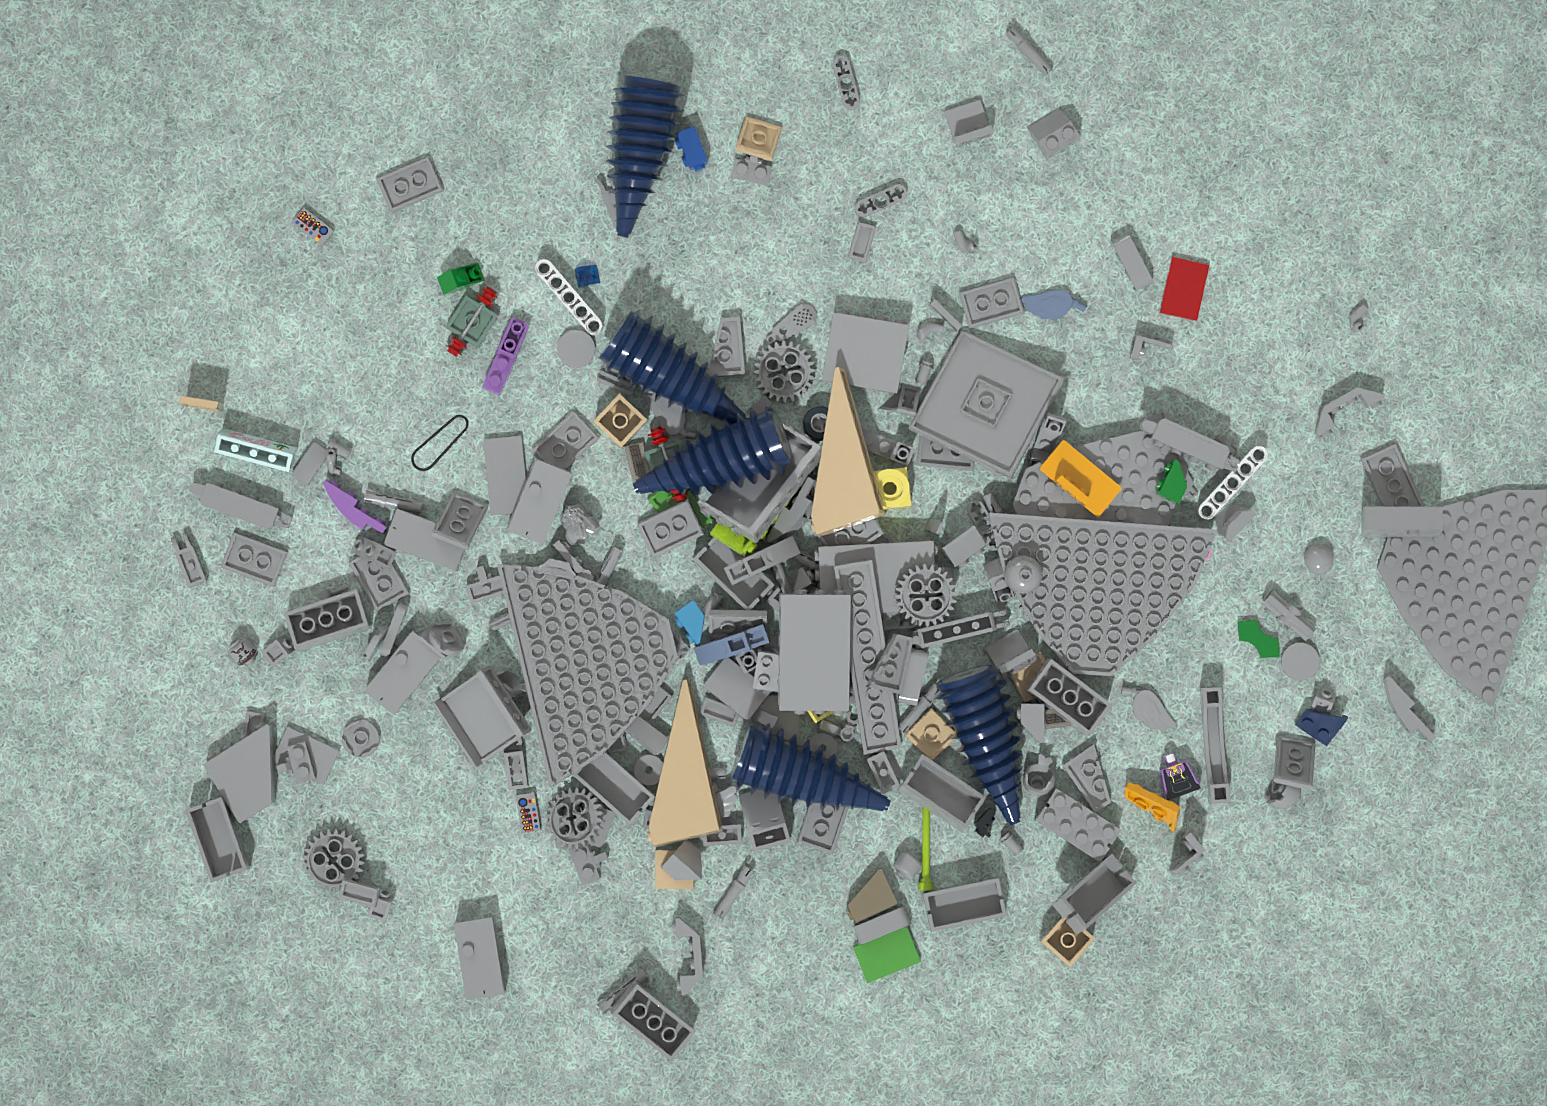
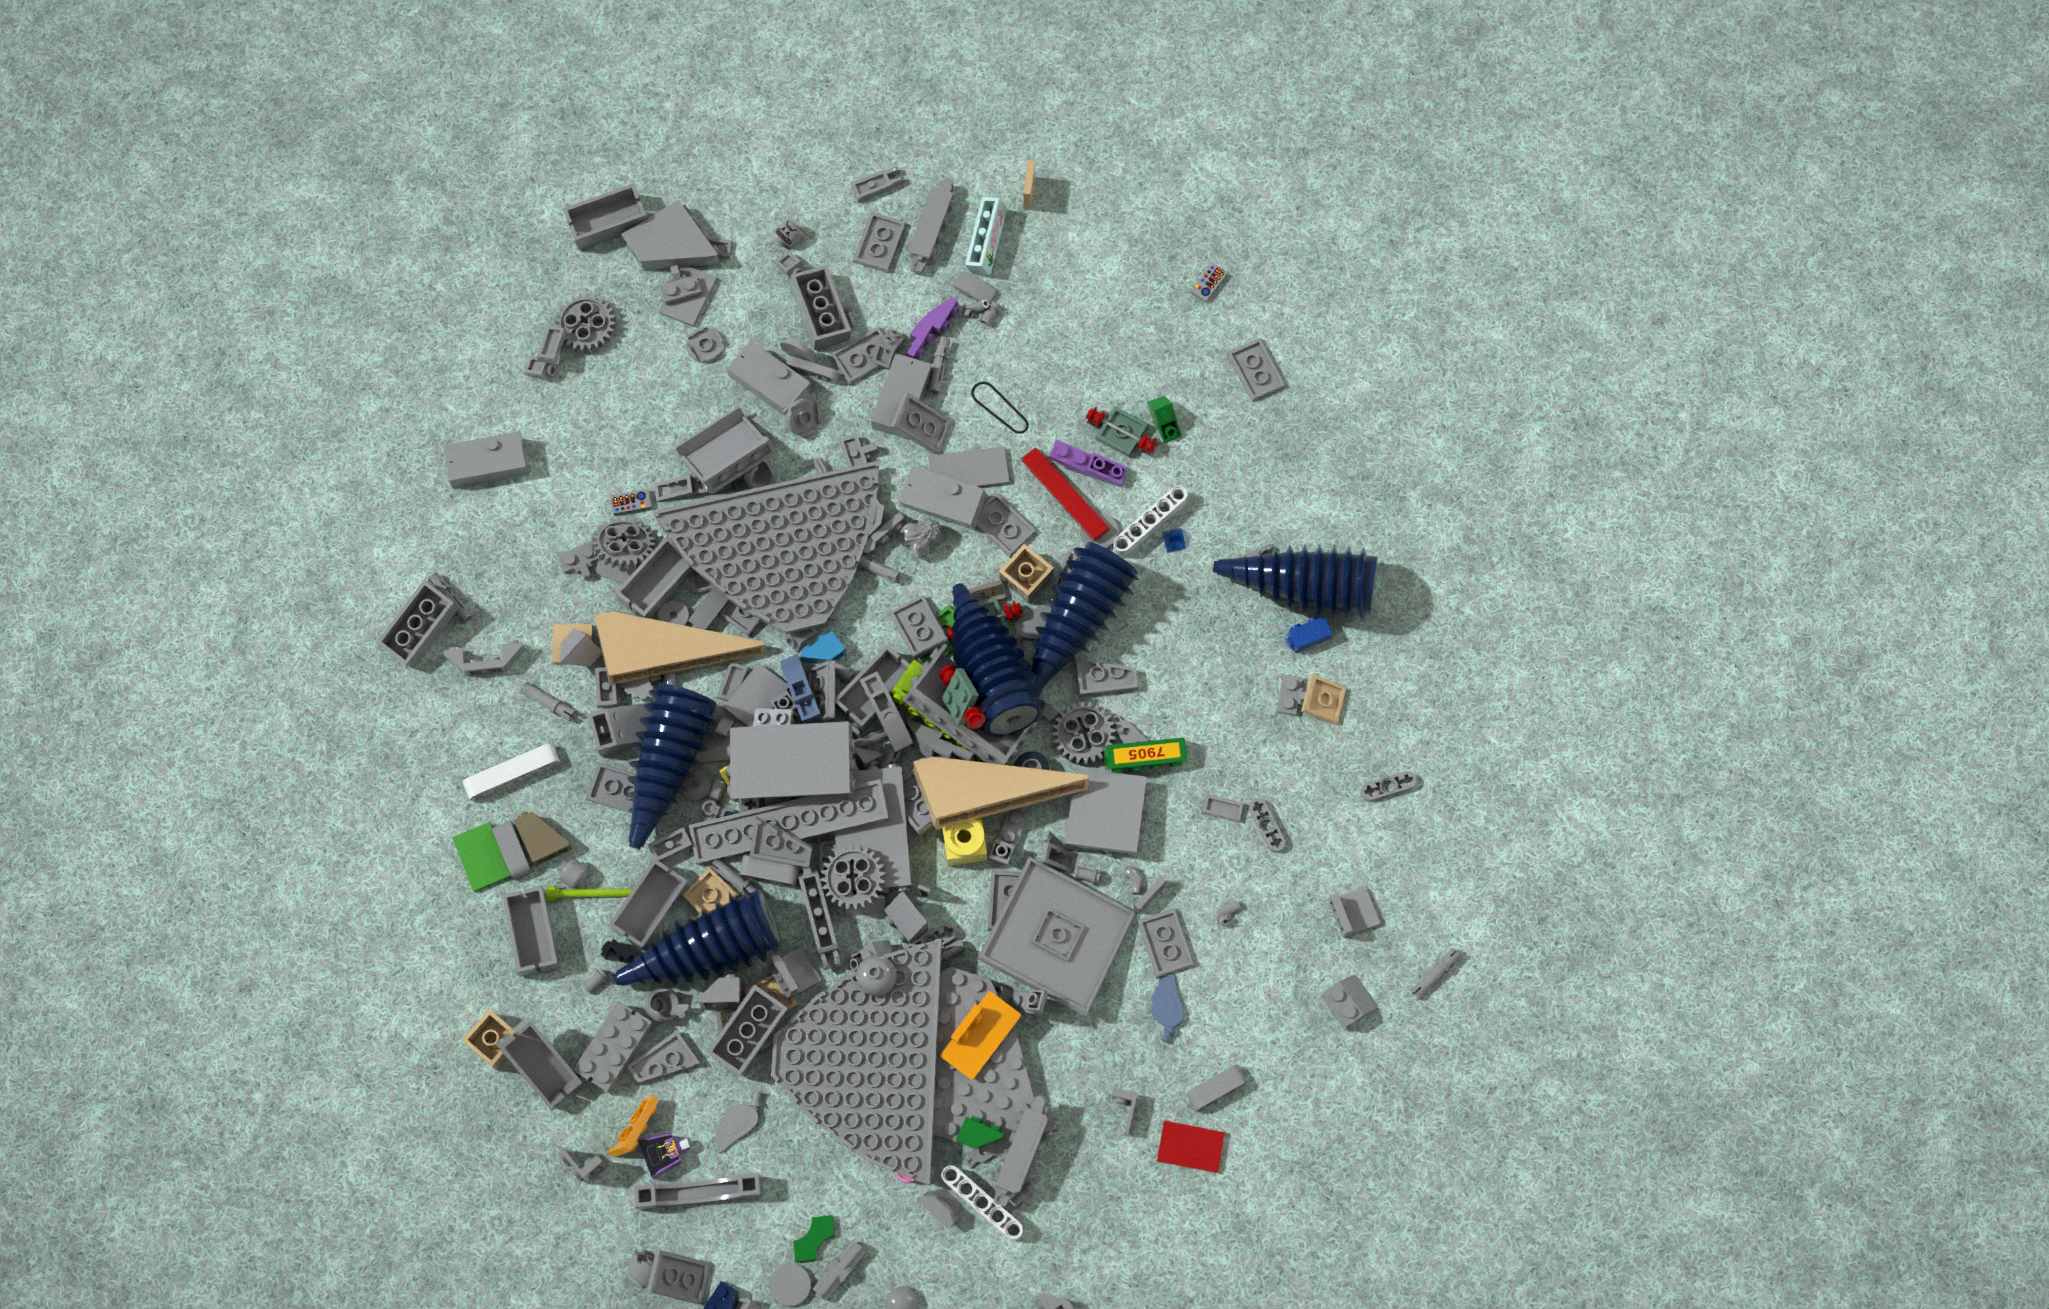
camera: 95 degrees right, 15 degrees down
(537, 380) = (1065, 494): none -> red tile
(759, 485) = (961, 697): none -> sand green plate
(804, 927) = (510, 771): none -> white beam
(809, 313) = (1145, 753): none -> brick

